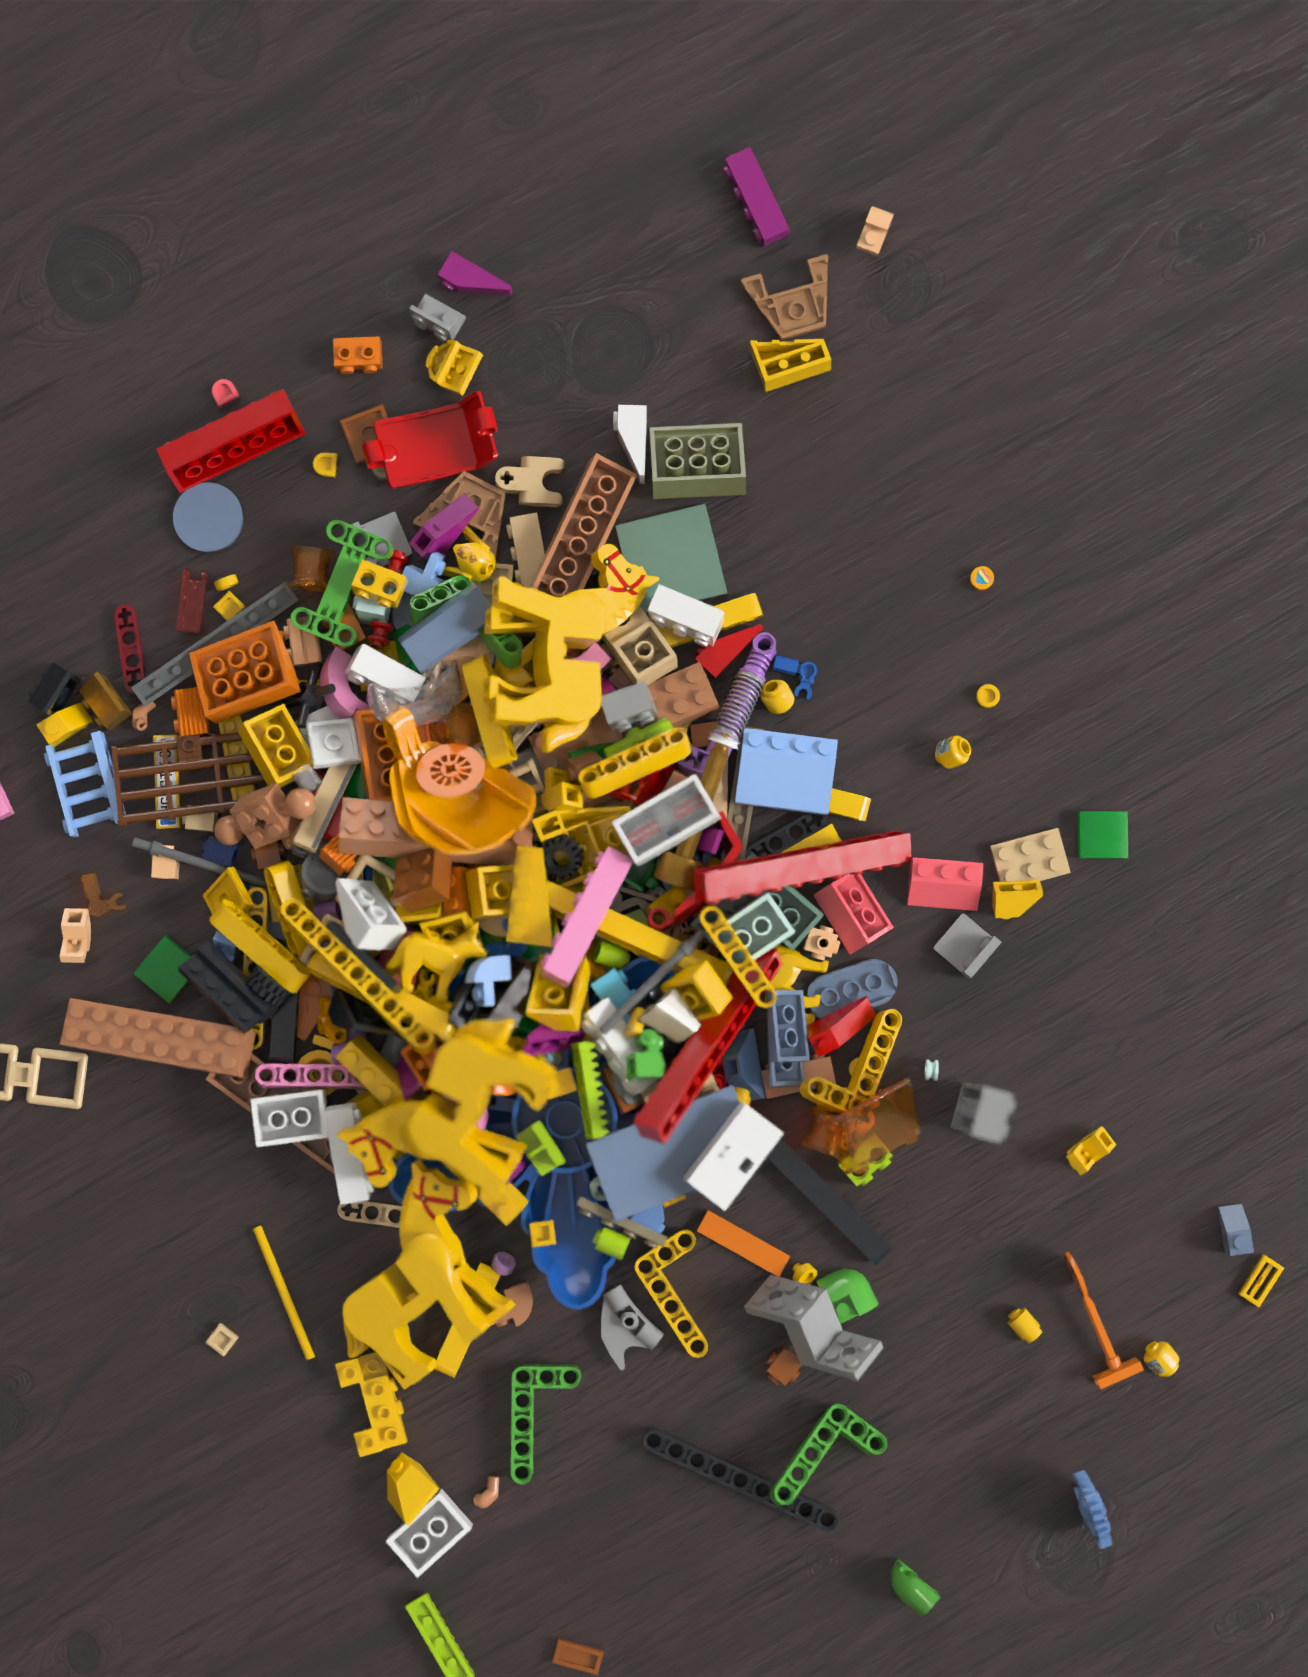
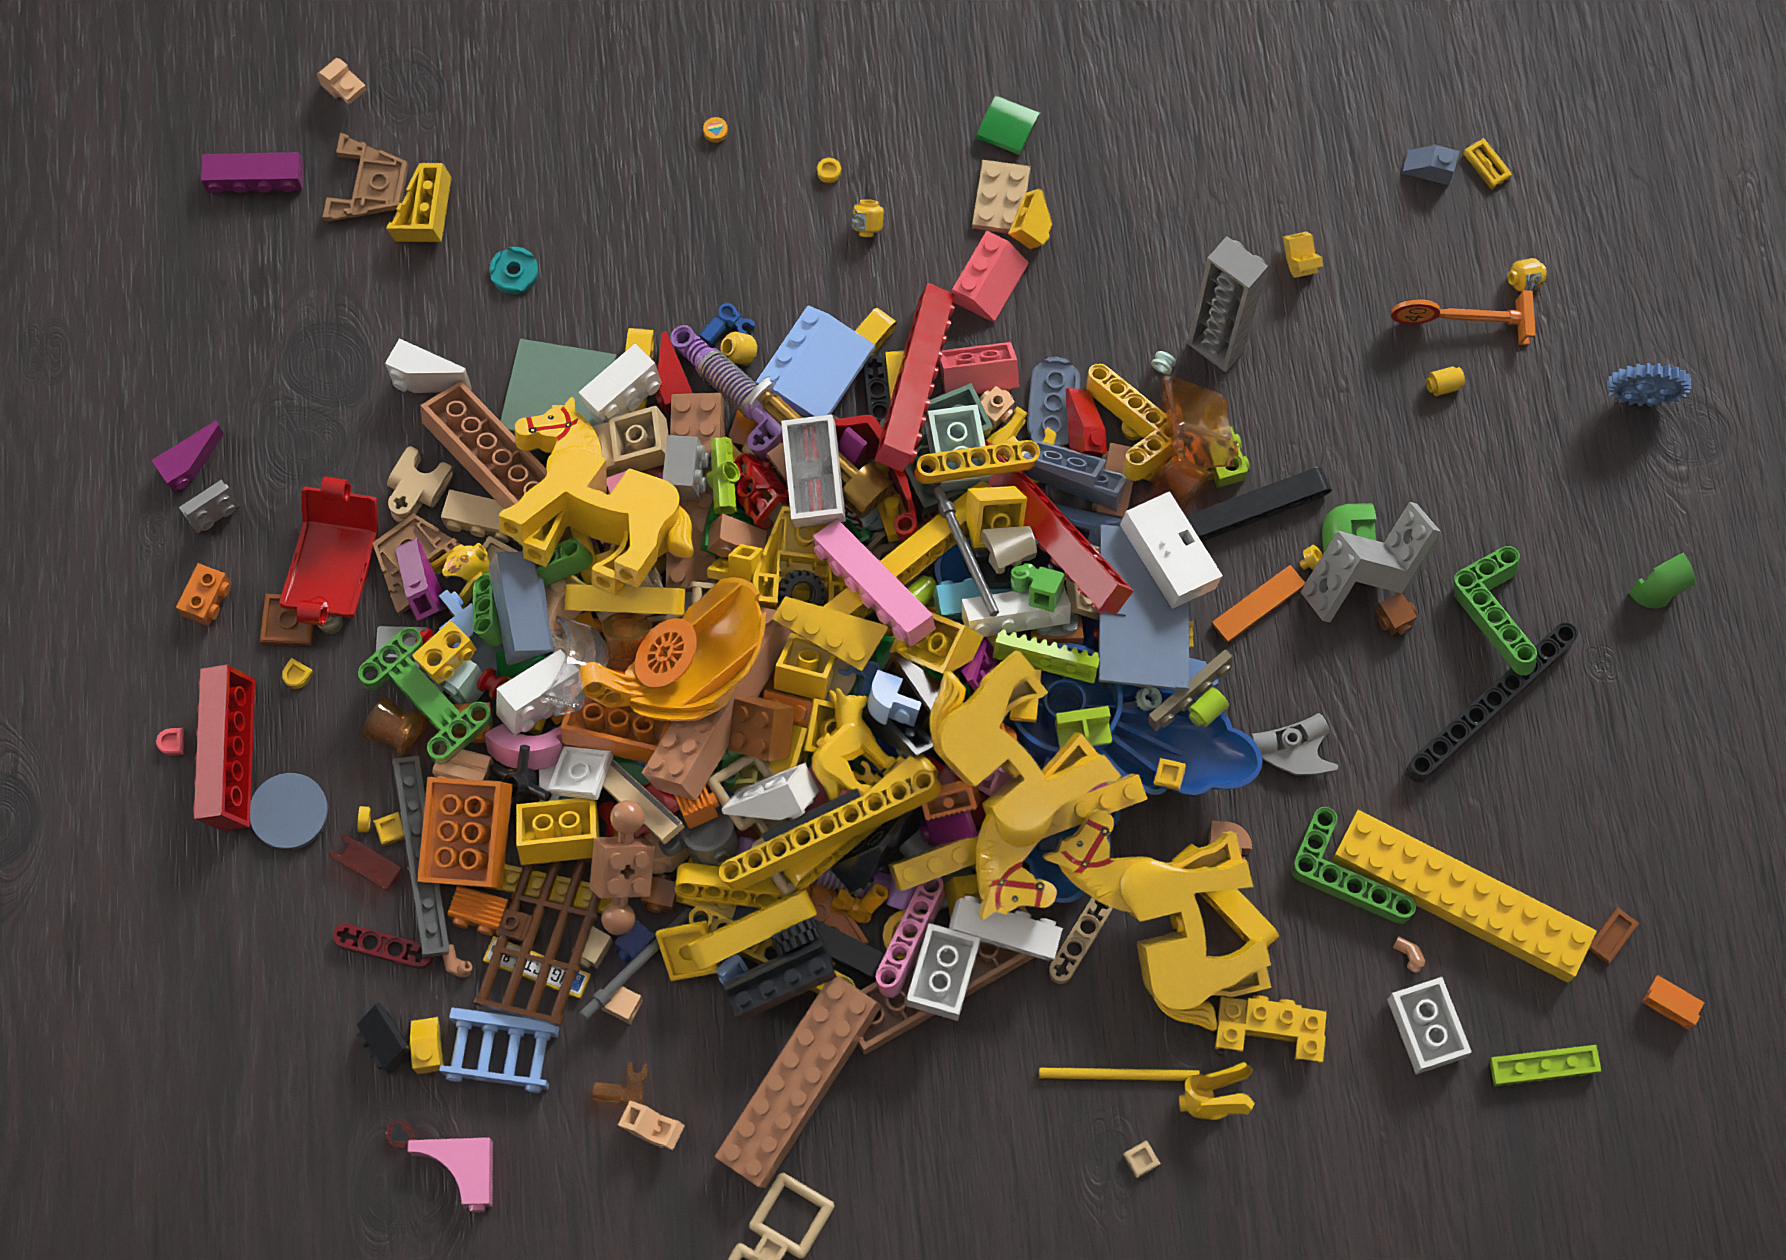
camera: 65 degrees left, 15 degrees down
(104, 701) = (423, 990): pearl gold slope -> none
(161, 969) = (730, 1049): green slope -> none
(285, 1382) = (1200, 1098): none -> yellow piece
(307, 778) = (602, 807): clear piece -> none
(322, 1041) = (878, 918): yellow tile -> none
(409, 1487) = (1375, 1026): yellow slope -> none
(453, 366) = (263, 511): yellow slope -> none
(503, 1263) = (1182, 838): lavender tile -> none
(554, 1519) = (1465, 896): none -> yellow brick
(633, 1026) = (1001, 583): yellow tile -> none
(635, 763) = (742, 482): yellow beam -> none
(669, 1293) = (1279, 690): yellow beam -> none
(697, 461) = (478, 325): olive slope -> none
(765, 480) = (514, 283): none -> teal tile
(966, 946) = (1060, 282): light grey bracket -> none

